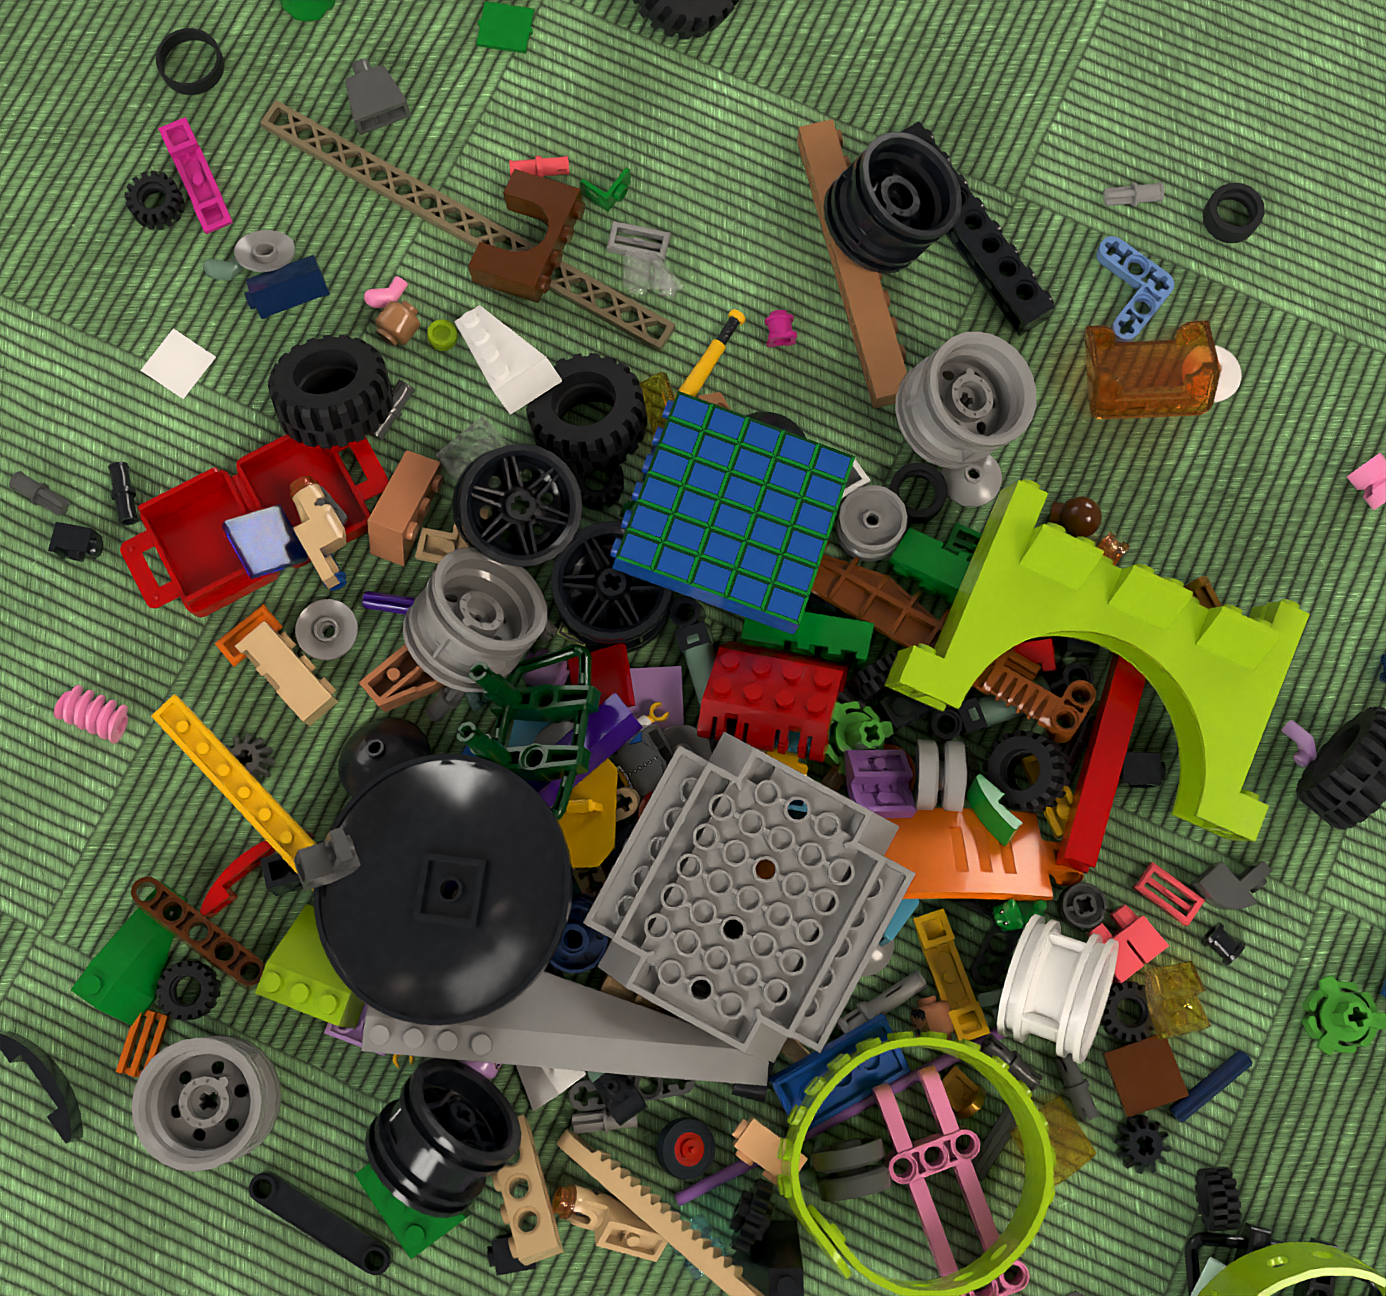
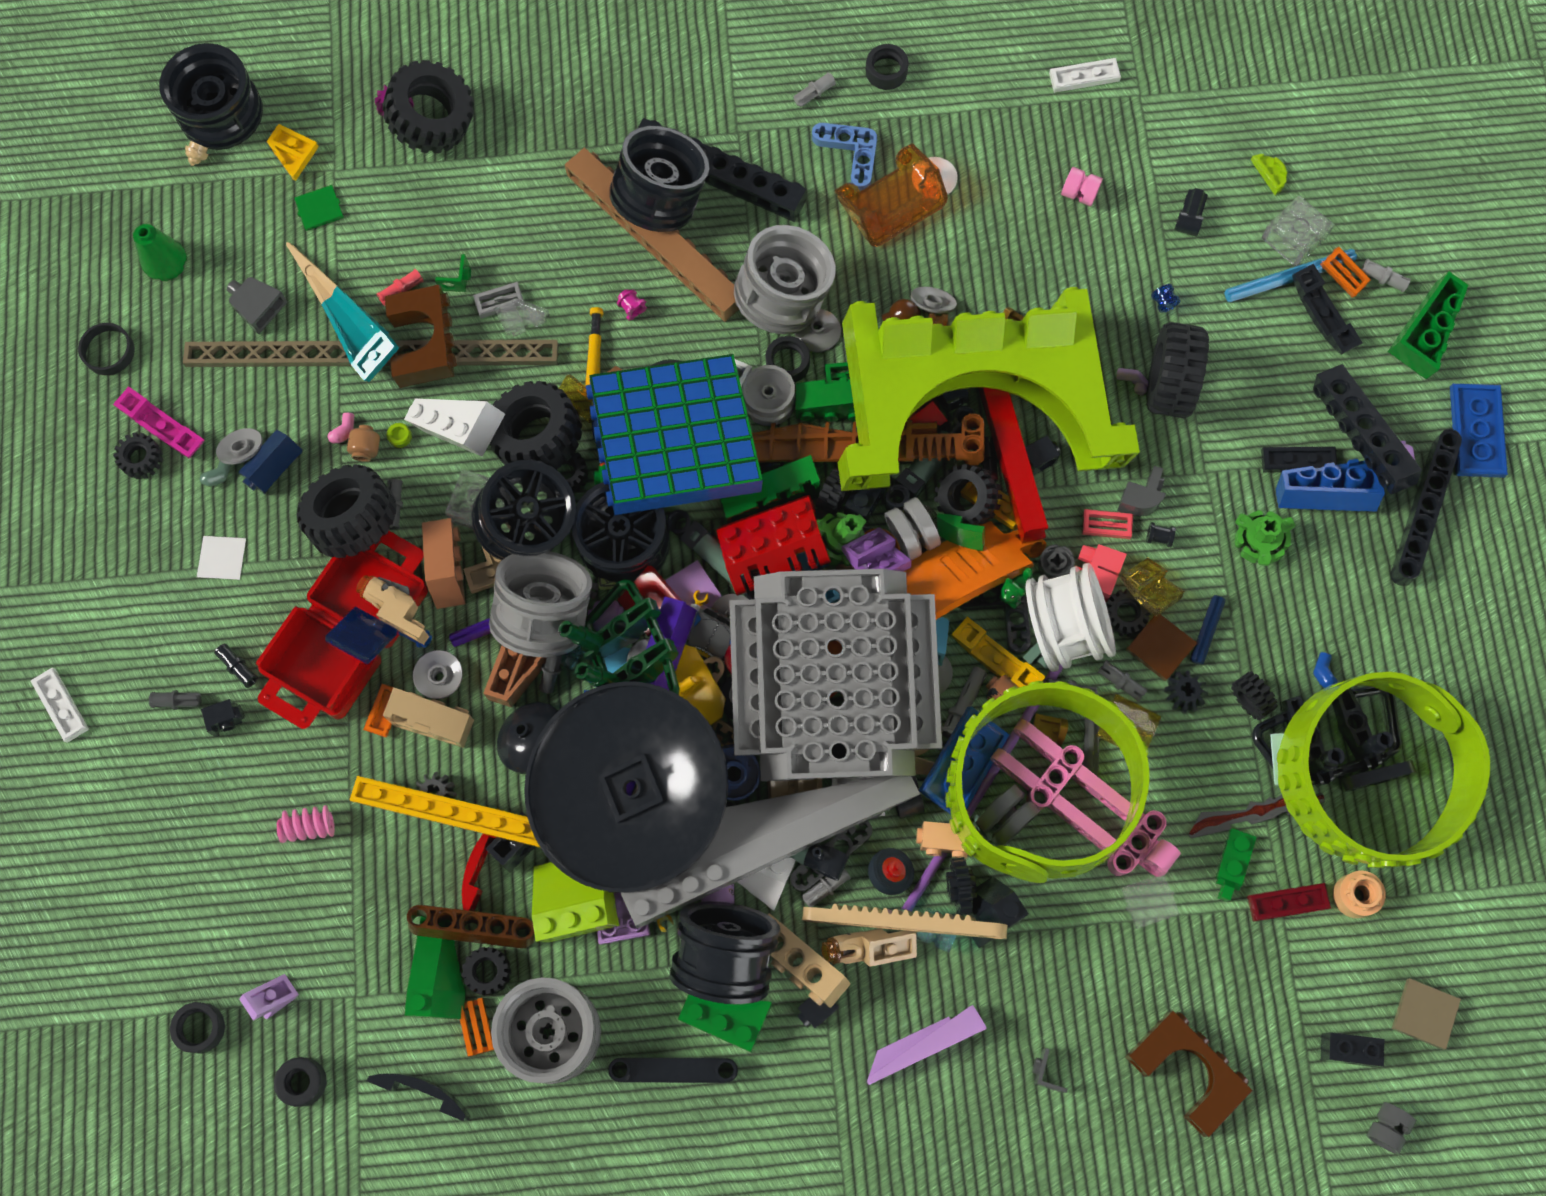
camera: 25 degrees left, 5 degrees down
(326, 861) = (537, 814): dark grey brick -> none
(463, 196) = (361, 336): none -> teal plate
(1124, 518) = (933, 300): none -> light grey dish
(1314, 1215) = (1322, 672): none -> blue arm

